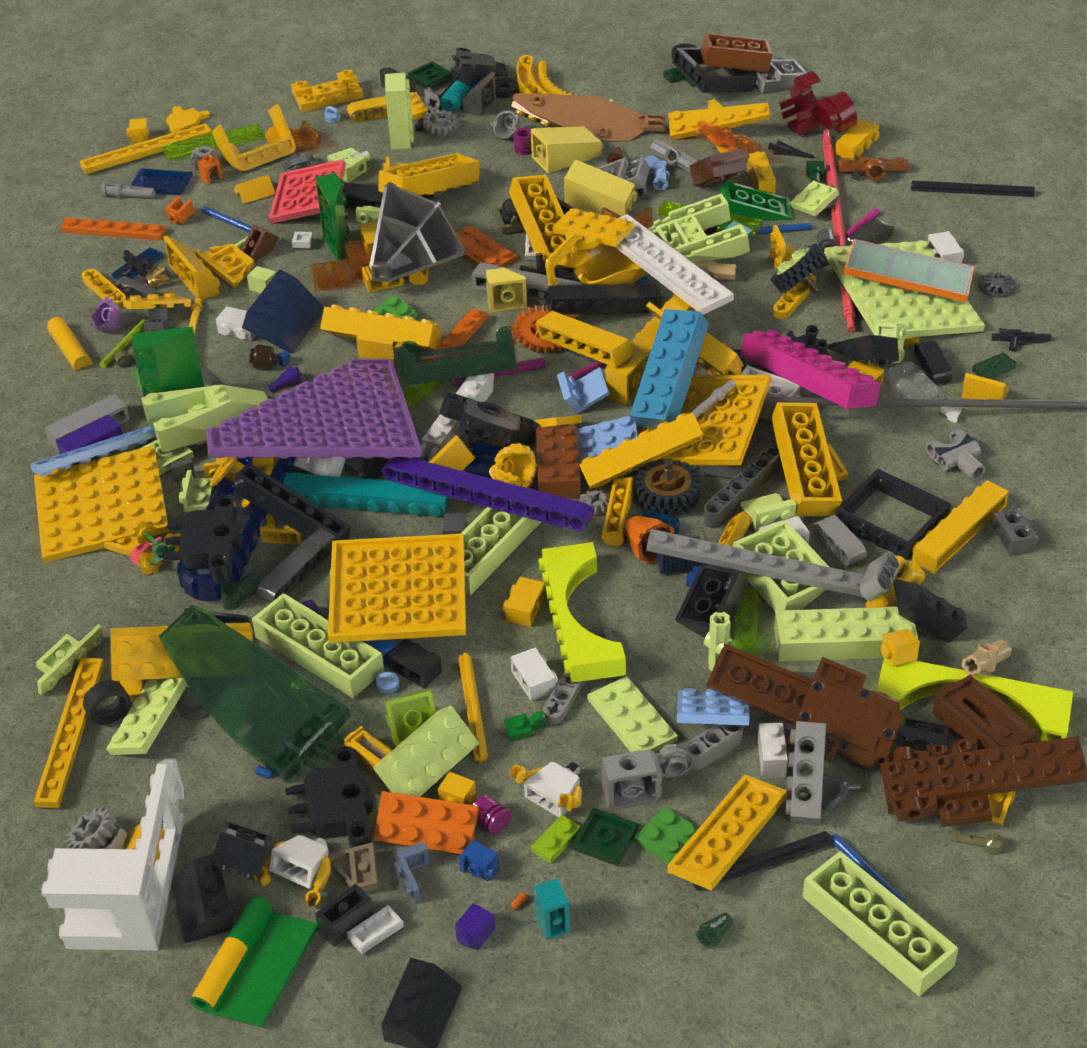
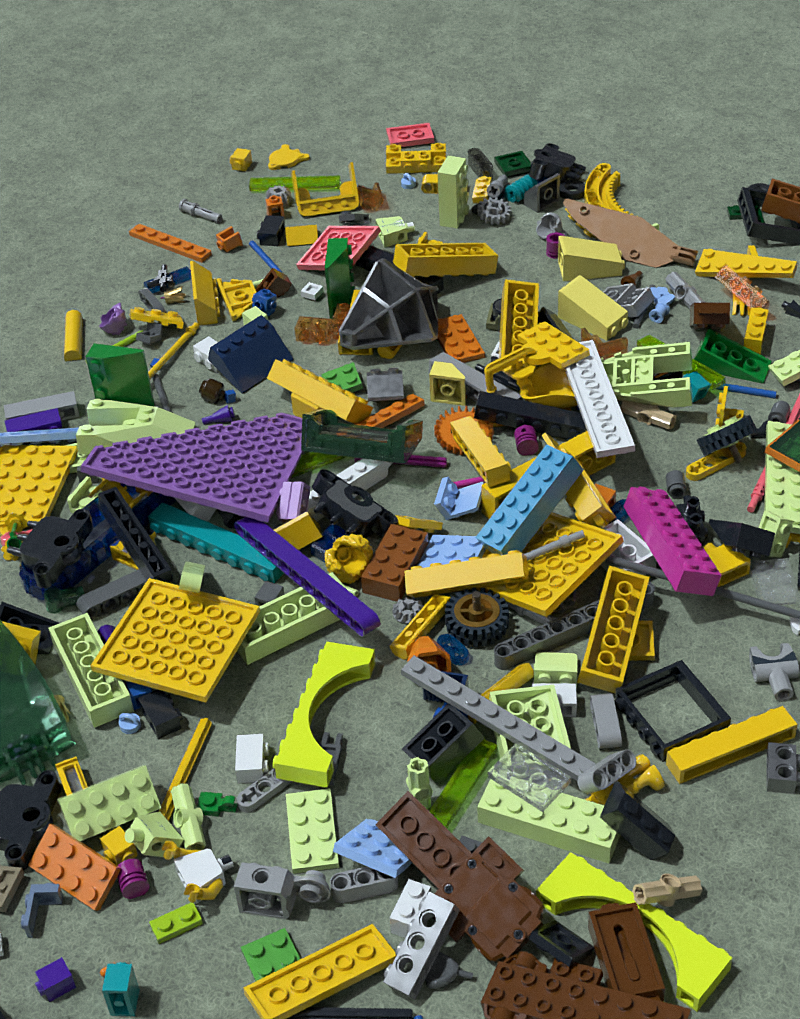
camera: 25 degrees right, 0 degrees up
(107, 286) = (132, 294): yellow beam -> none
(141, 149) = (233, 177): yellow plate -> none
(164, 181) = (234, 209): clear blue piece -> none
(219, 192) = (271, 230): none -> black brick
(262, 257) = (265, 301): none -> blue brick
(305, 69) = (410, 135): none -> coral plate
(376, 527) = (192, 577): none -> yellowish green beam
(408, 713) = (120, 757): lime bracket -> none
(431, 432) = (293, 500): none -> lavender brick
(442, 306) = (385, 384): none -> flat silver slope
(479, 861) = (96, 919): blue brick -> none
(485, 769) = (151, 832): none -> yellowish green torso
(508, 742) = (188, 817): none -> yellowish green piece
(524, 601) = (285, 686): yellow brick -> none
(605, 836) = (216, 937): dark green plate -> none
(611, 322) = (526, 441): none -> magenta piece
(772, 321) = (675, 483): none -> dark grey brick
(815, 602) = (529, 777): none -> clear plate
(900, 647) = (583, 850): yellow brick -> none

